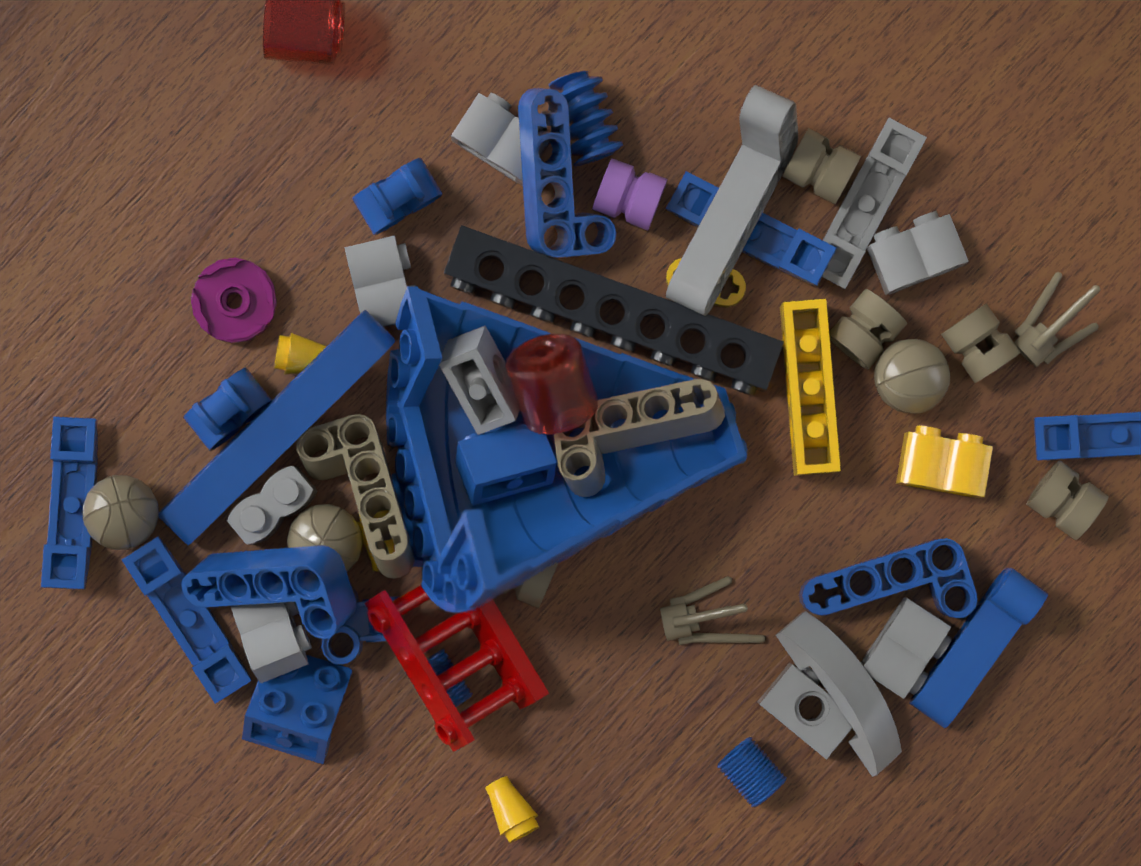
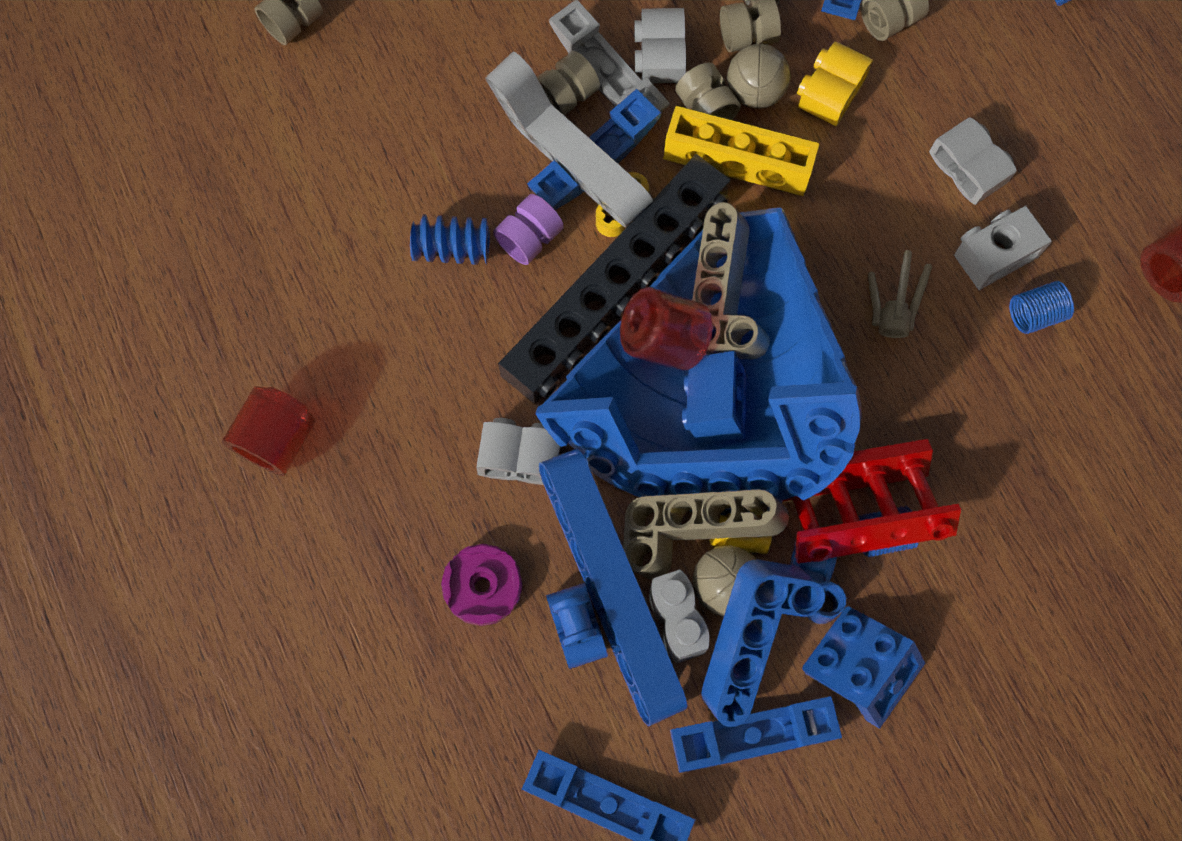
camera: 75 degrees left, 15 degrees down
(120, 512) = (635, 757): dark tan piece -> none
(272, 638) = (801, 660): light grey brick -> none
(295, 353) = (550, 548): yellow cone -> none
(397, 196) = (450, 411): blue piece -> none
(480, 380) = (641, 386): light grey brick -> none
(493, 135) = (438, 312): light grey brick -> none
(511, 810) = (1017, 512): yellow cone -> none
(558, 172) = (490, 277): blue beam -> none
(849, 686) = (956, 216): light grey slope -> none
(884, 585) = (916, 158): blue beam -> none
(976, 646) = (975, 94): blue beam -> none

